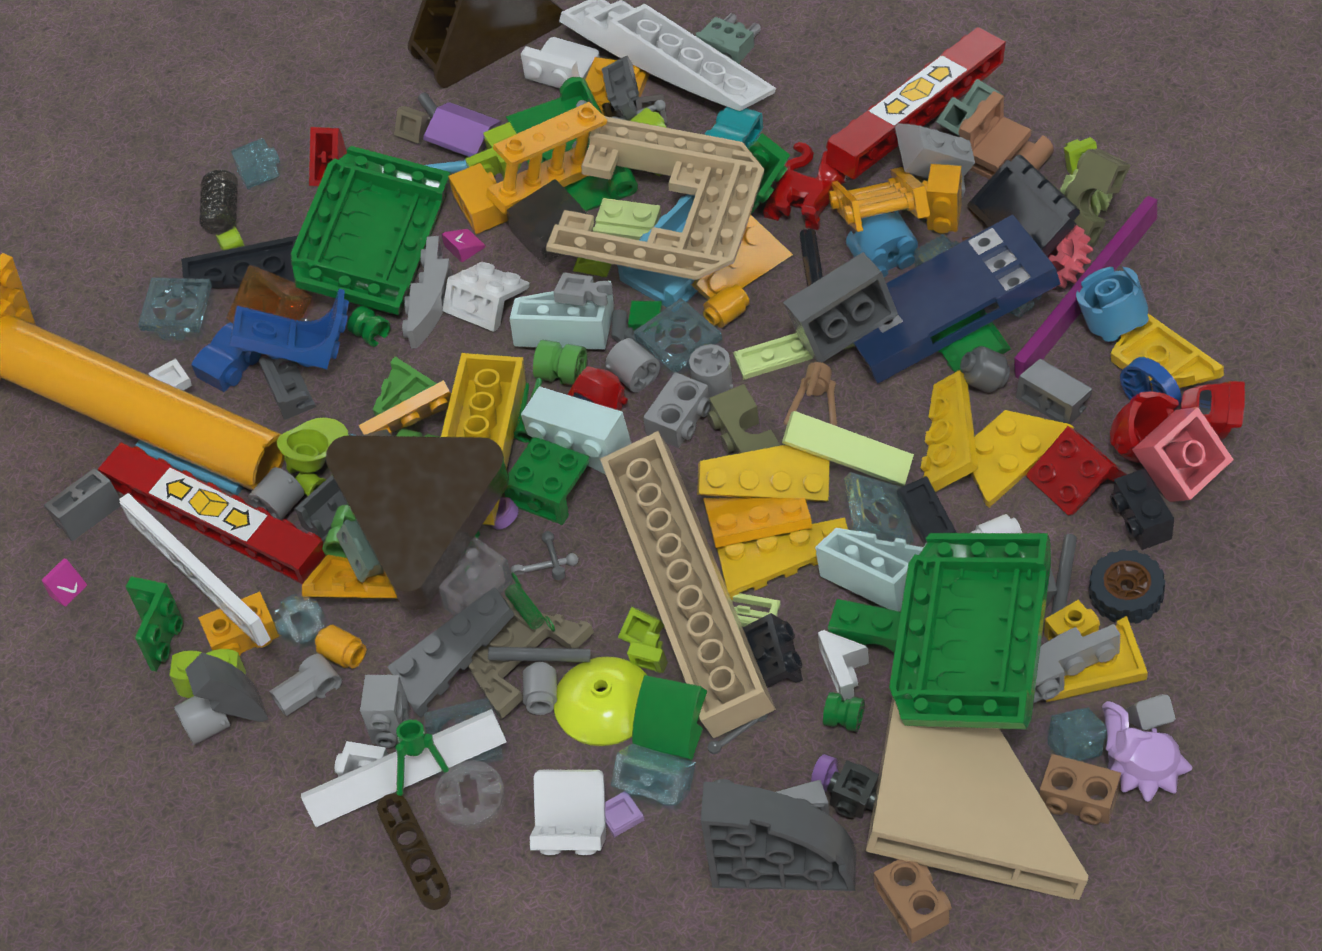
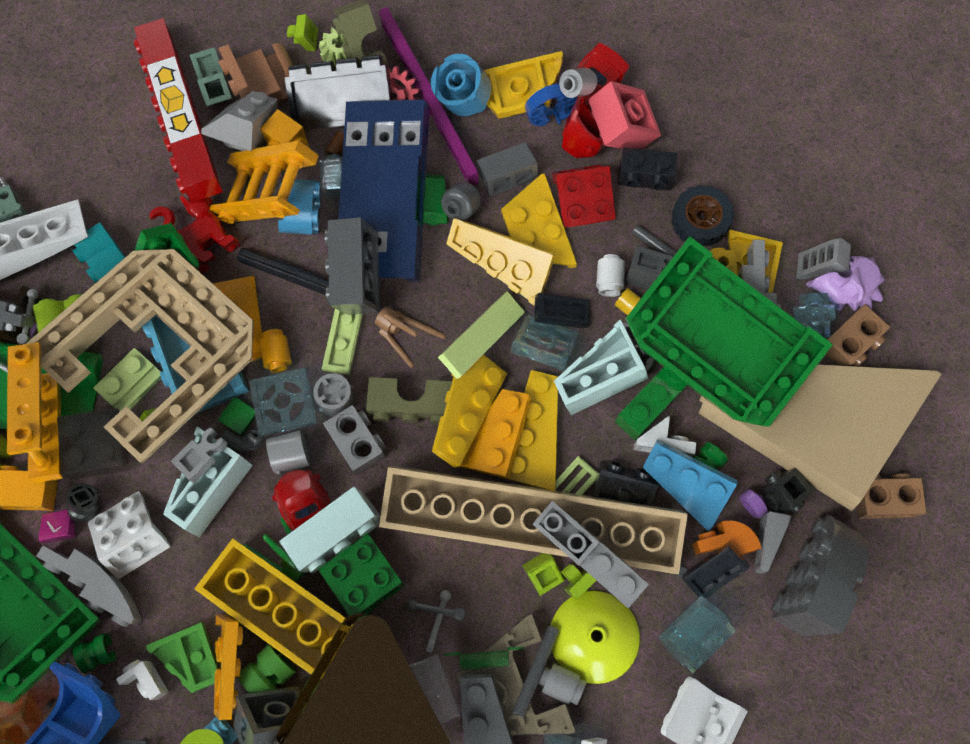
camera: 70 degrees left, 20 degrees up
(367, 372) = (149, 684): none -> white bracket
(493, 244) = (86, 507): none -> pearl dark grey wheel
(556, 362) = (245, 510): bright green wheel -> none
(622, 814) = (710, 675): lavender tile -> none
(668, 716) = (660, 600): green slope -> none
(674, 625) = (590, 554): none -> light grey slope
(728, 762) = (716, 571): none -> black plate
(771, 766) = (729, 531): none -> orange brick
(808, 700) = (692, 483): none -> dark azure wing
(1176, 382) = (578, 82): none -> light grey brick

